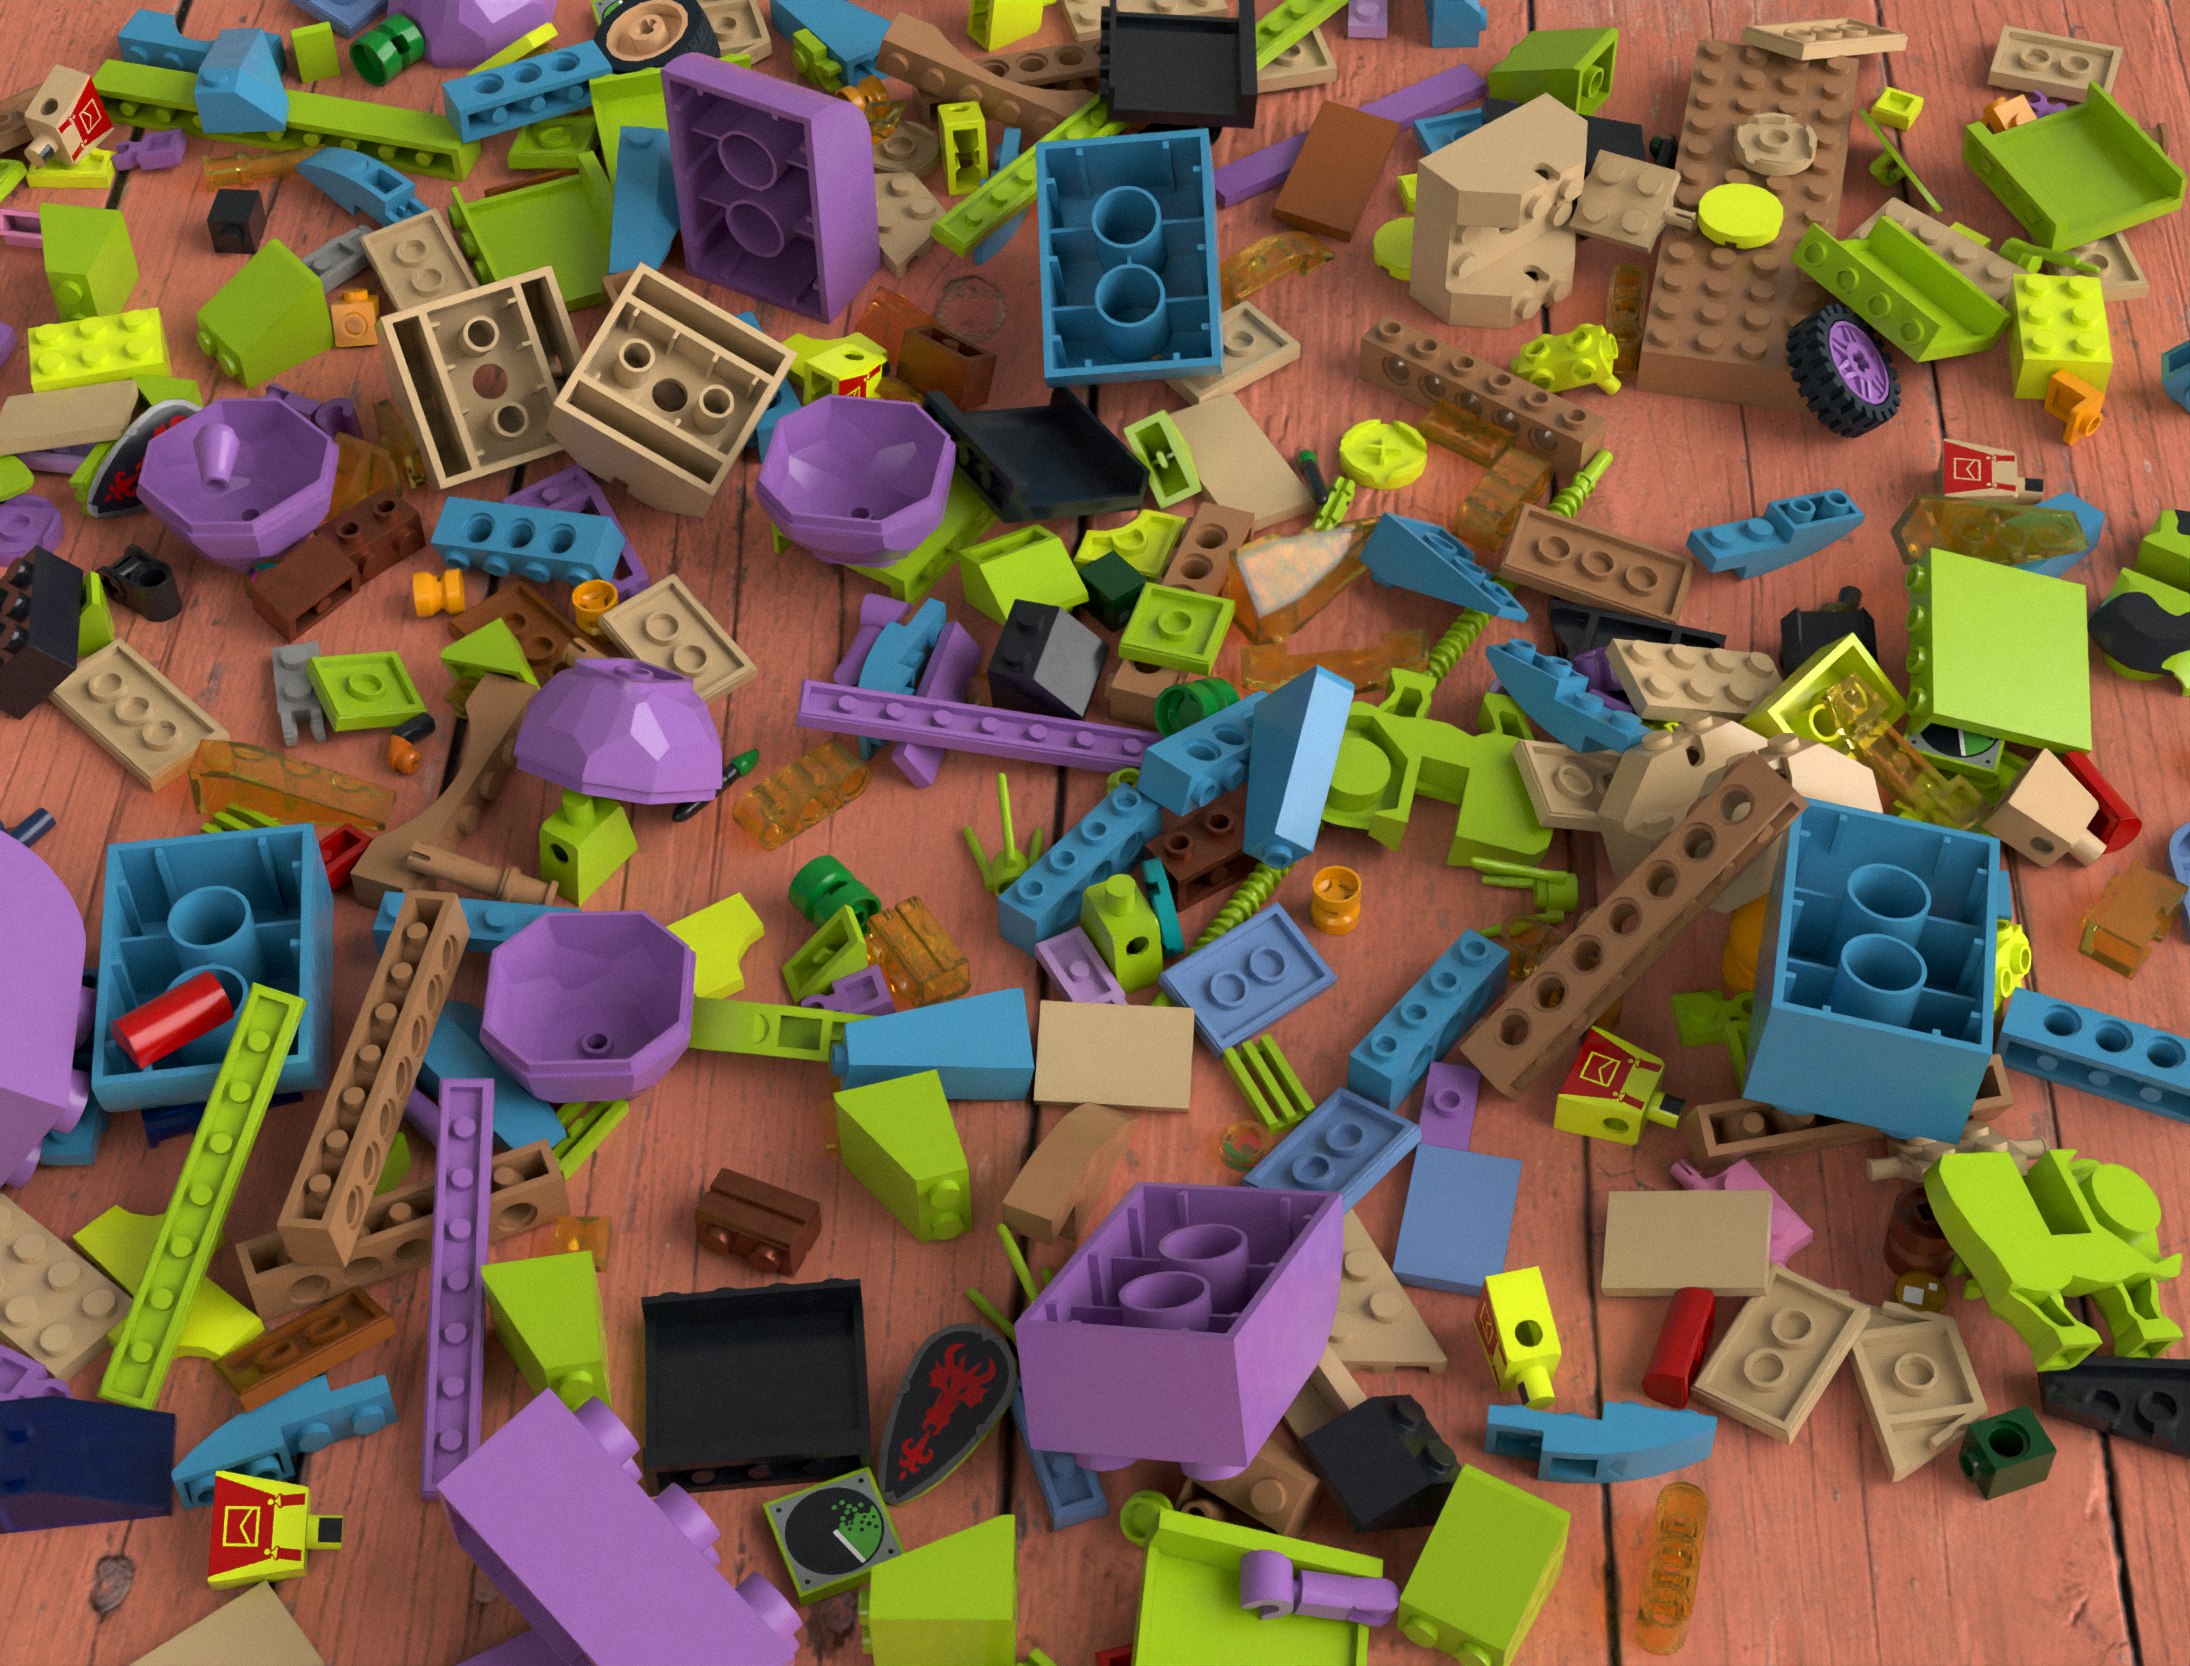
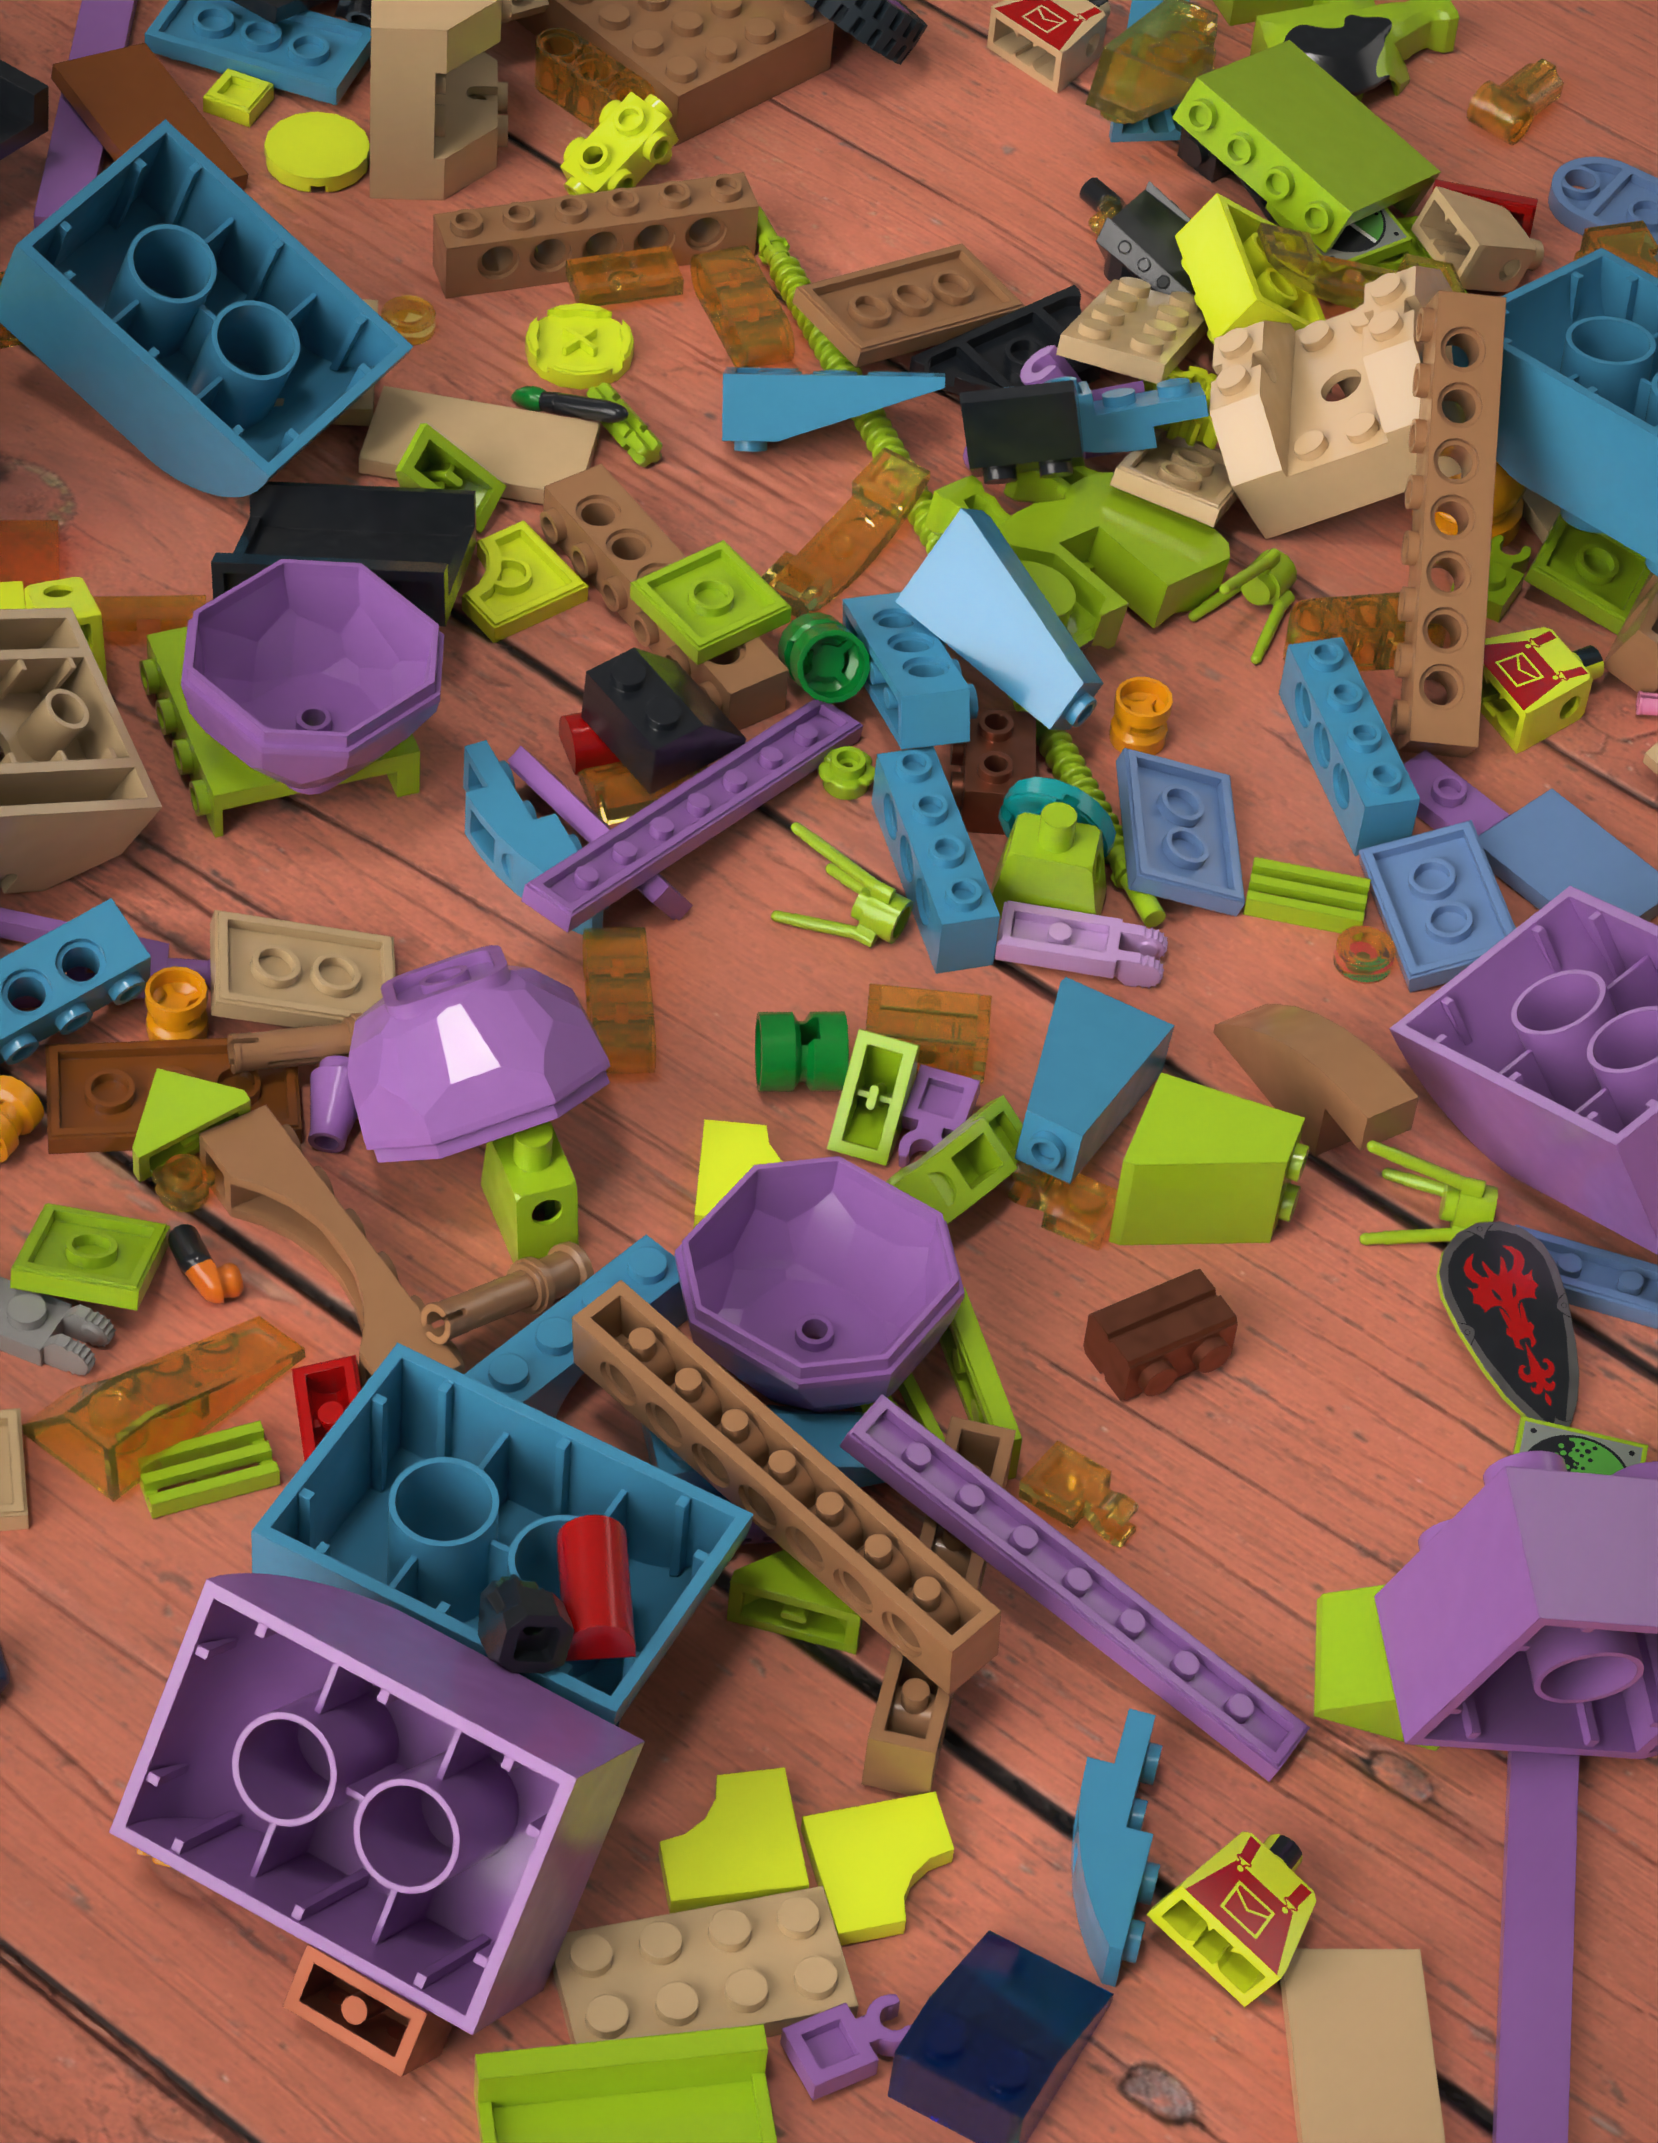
camera: 60 degrees left, 0 degrees up
(107, 995) = (523, 1626): none -> black rock
(202, 1198) = (810, 1717): lime tile -> none
(303, 1348) = (1021, 1767): dark orange tile -> none
(552, 1324) = (1209, 1544): lime slope -> none
(627, 1150) = (977, 1376): none -> lime tile
(755, 1386) = (1352, 1448): black panel -> none
(874, 616) = (441, 811): medium lavender piece -> none
(945, 362) = (124, 547): copper brick -> none
(1020, 566) = (506, 670): lime slope -> none
(1111, 589) = (574, 624): dark green brick -> none
(1114, 1056) = (1195, 967): tan tile -> none
(1289, 580) = (714, 492): clear yellow wedge -> none
(1312, 371) = (411, 318): none -> clear yellow tile
(1476, 668) = (1023, 431): none -> black slope
(1782, 536) = (980, 174): dark azure slope -> none

